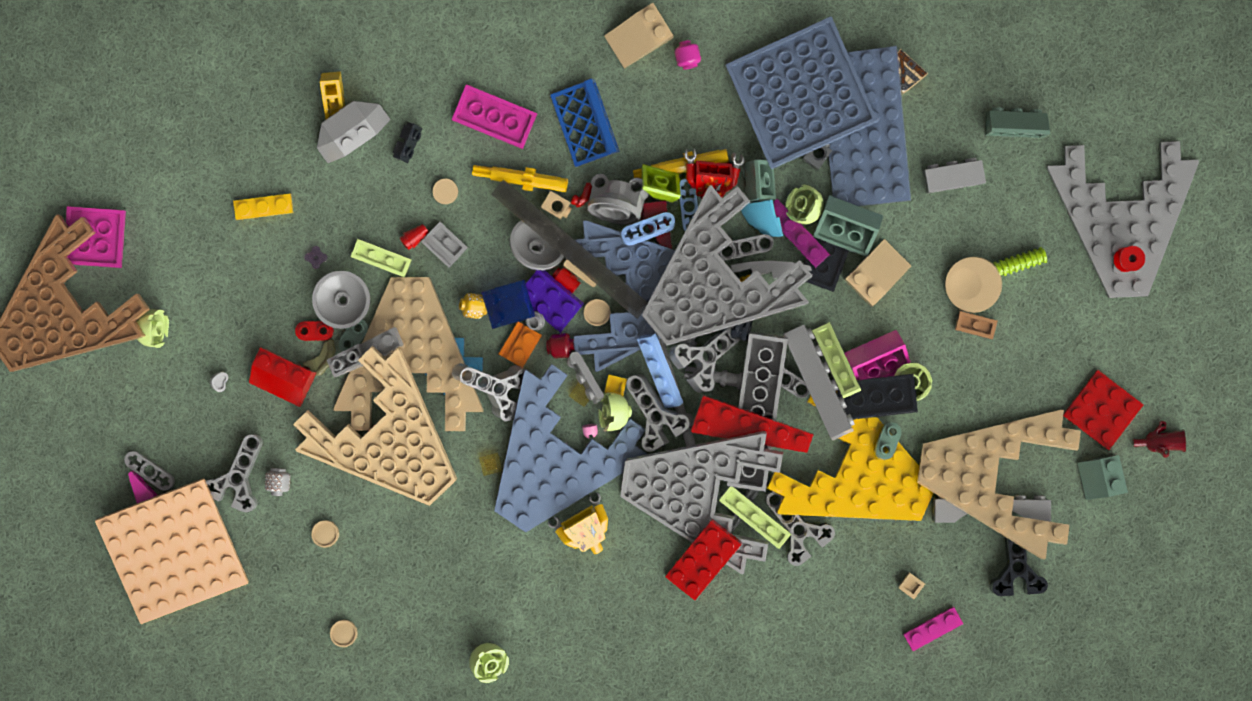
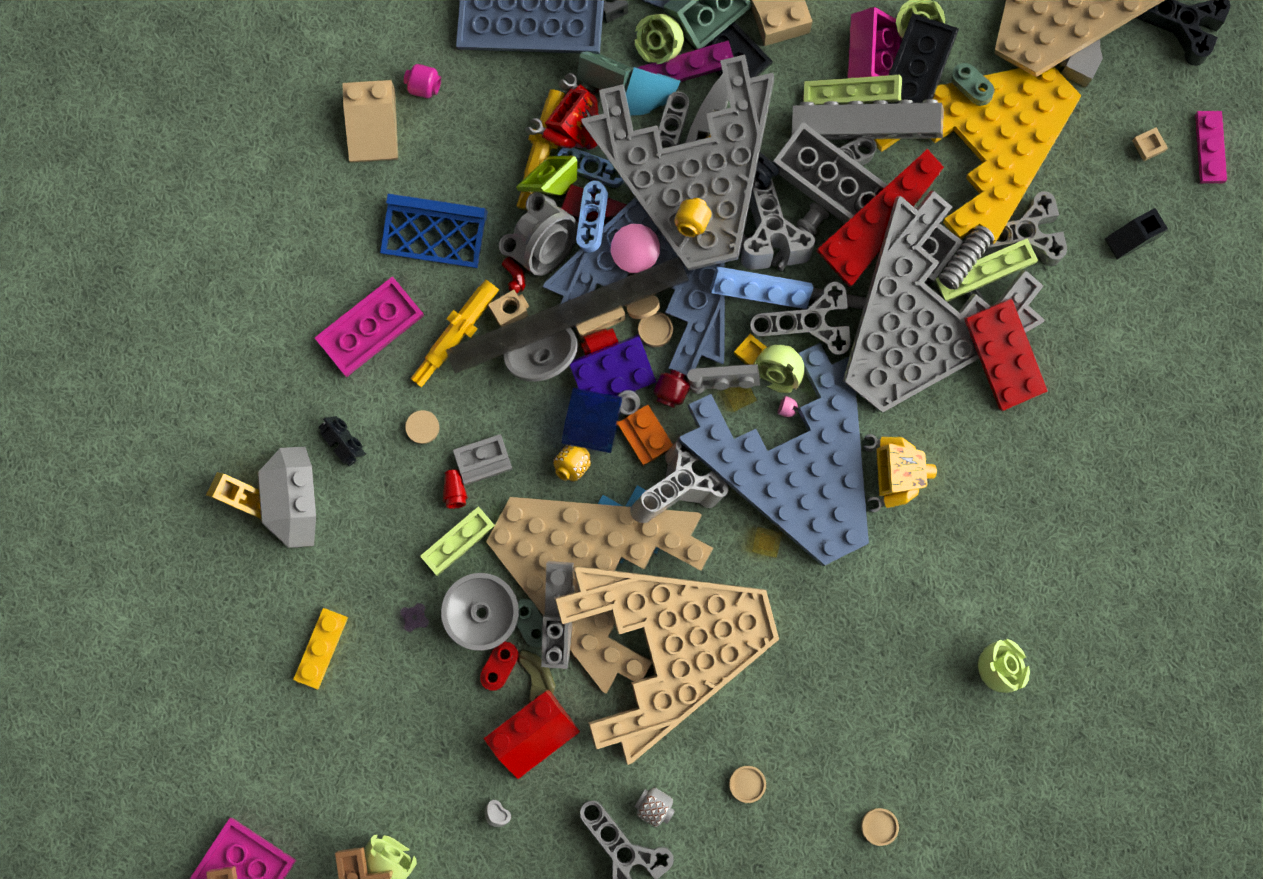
camera: 60 degrees left, 10 degrees down
(605, 299) = (644, 308): none -> tan piece
(640, 270) = (635, 248): none -> bright pink dish
(676, 300) = (692, 217): none -> yellow head
(754, 499) = (966, 257): none -> light grey piece
(837, 607) = (1136, 234): none -> black slope

